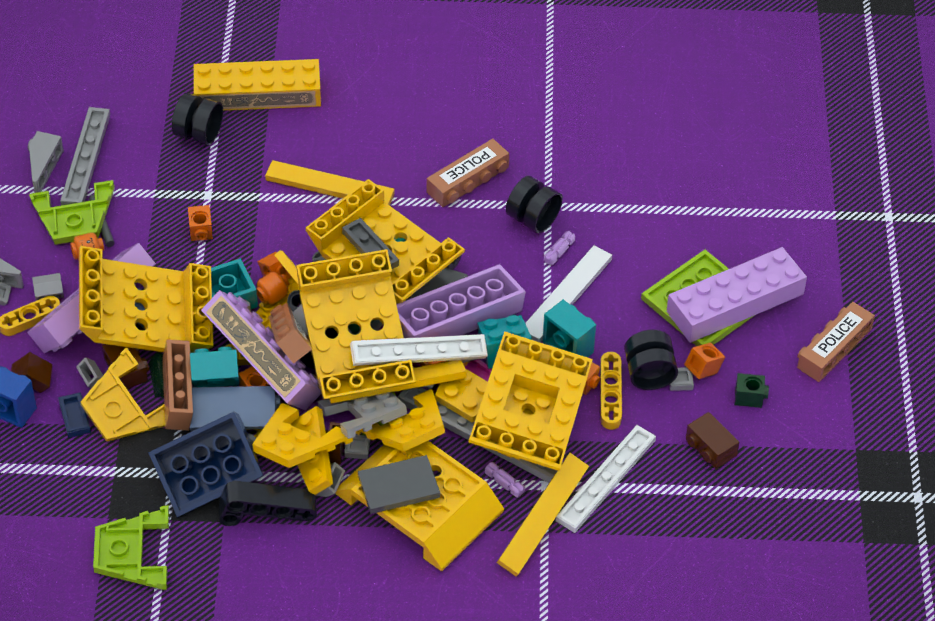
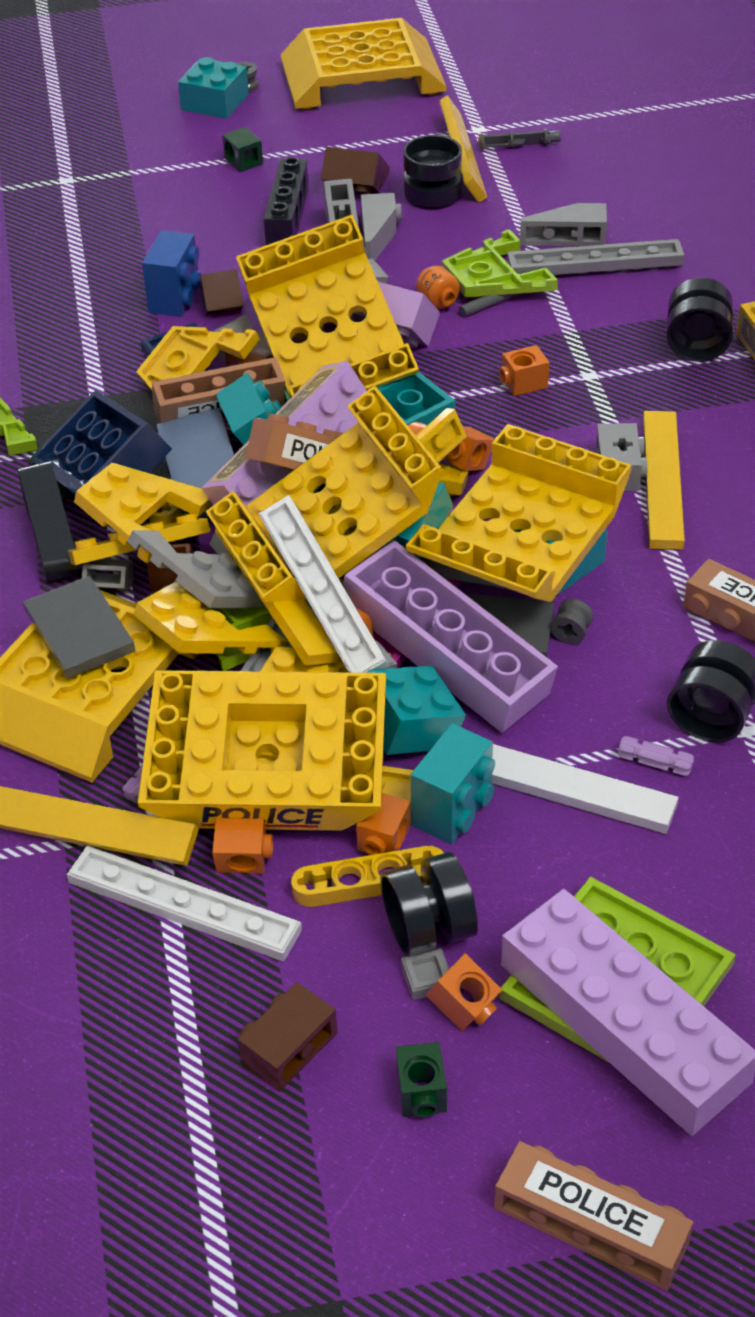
camera: 80 degrees right, 5 degrees down
(307, 197) = (623, 444): none -> light grey brick
(366, 240) = (502, 497): dark grey plate -> none
(580, 440) = (241, 845): none -> orange brick

